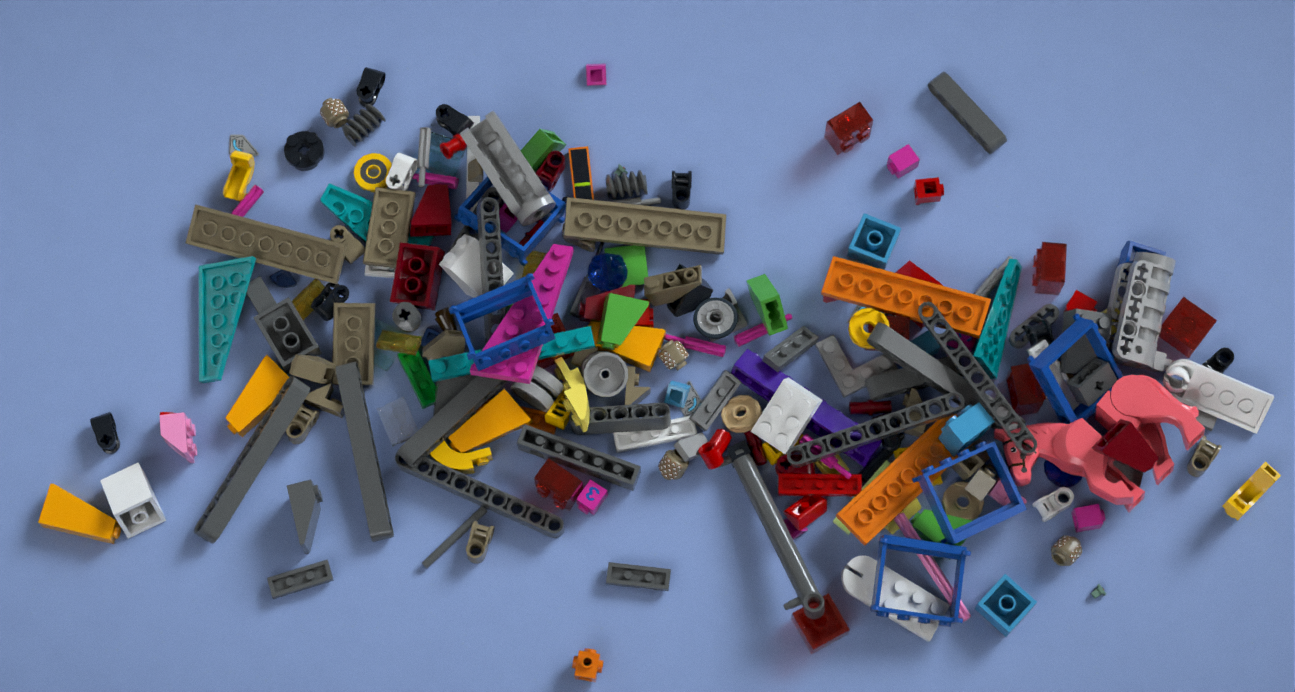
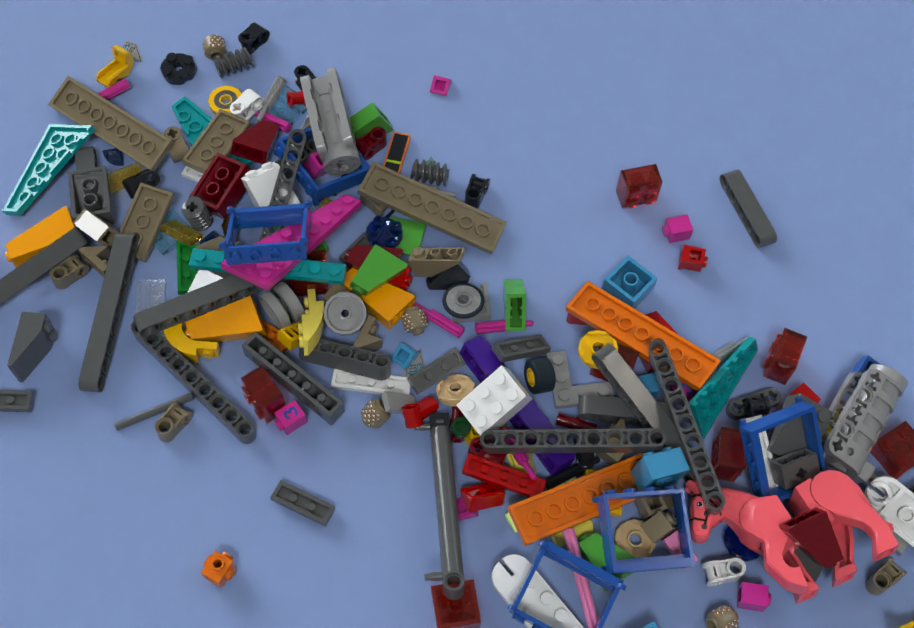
camera: 15 degrees right, 10 degrees down
(761, 450) = (460, 427): none -> dark green tile
(818, 370) = (539, 375): none -> black wheel

